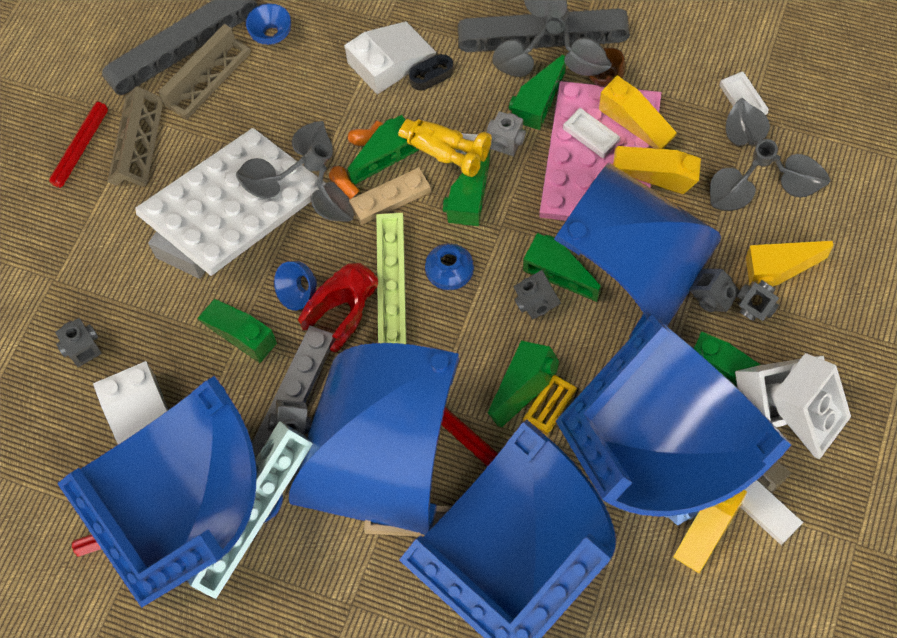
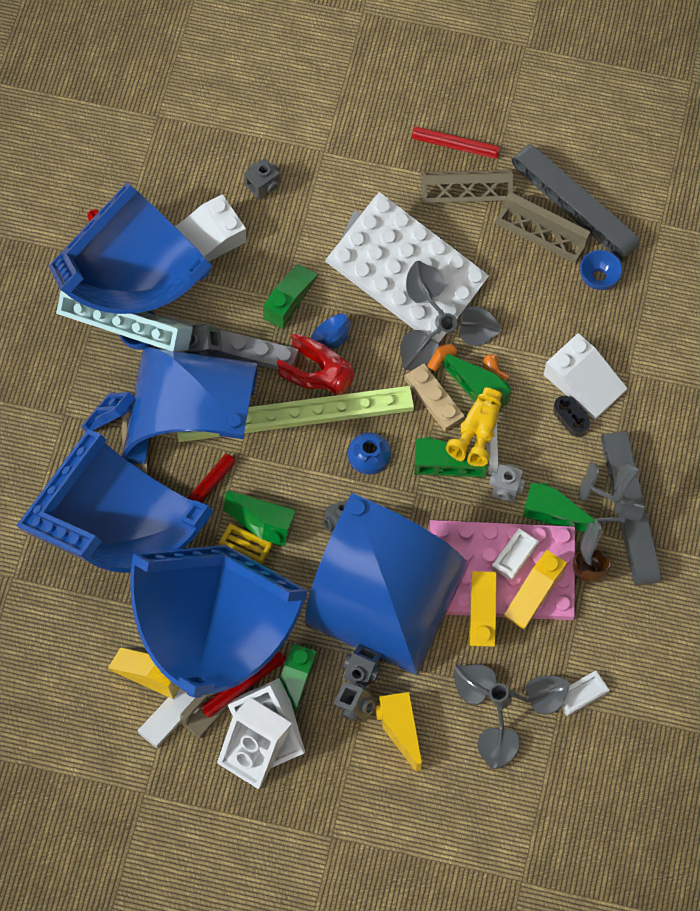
camera: 75 degrees right, 0 degrees up
(361, 542) = (110, 408): none -> blue wing

